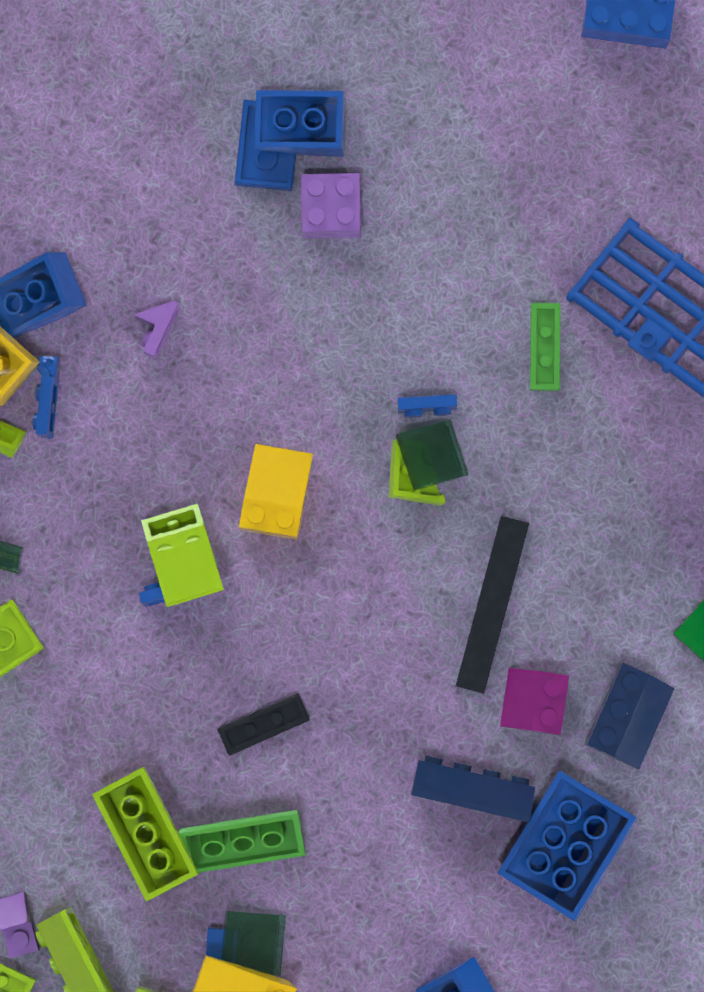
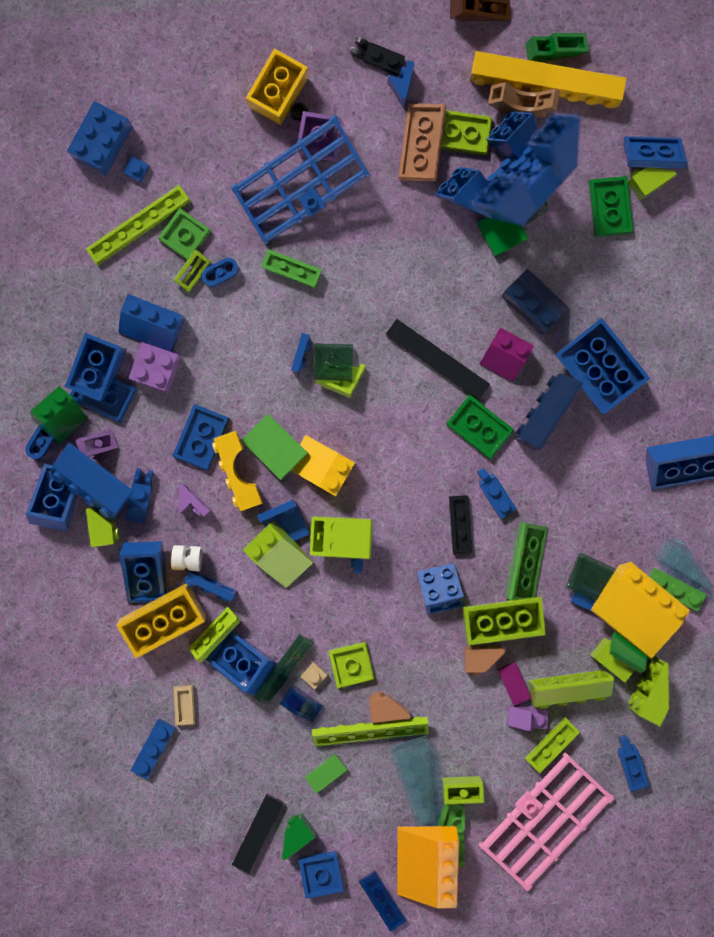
camera: 70 degrees left, 5 degrees up
(59, 887) = (514, 683): none -> magenta tile
(73, 214) = (101, 529): none -> lime slope
(75, 349) = (186, 558): none -> white wheel
(78, 822) = (481, 658): none -> nougat slope
(94, 132) = (51, 503): none -> blue slope
(126, 476) = (278, 554): none -> lime slope
(134, 176) = (91, 482): none -> blue slope
(137, 251) = (139, 498): none -> blue hinge
(158, 729) = (441, 589): none -> bracket
(169, 83) = (38, 439): none -> blue plate
(173, 469) = (288, 517): none -> blue bracket
(191, 164) = (97, 444): none -> medium lavender slope
(196, 399) = (245, 494): none -> yellow arch
(213, 96) = (58, 415): none -> green slope
(255, 306) = (198, 435): none -> blue tile
(279, 415) = (274, 447): none -> bright green tile
(326, 760) = (495, 494): none -> blue hinge
(391, 176) = (150, 323): none -> blue slope
(416, 701) = (479, 426): none -> green tile
(491, 196) = (188, 275): none -> lime tile
(504, 245) = (219, 270): none -> blue plate
(527, 107) = (138, 225): none -> lime tile
(537, 177) = (184, 234): none -> bright green tile
(606, 76) = (136, 169): none -> blue plate

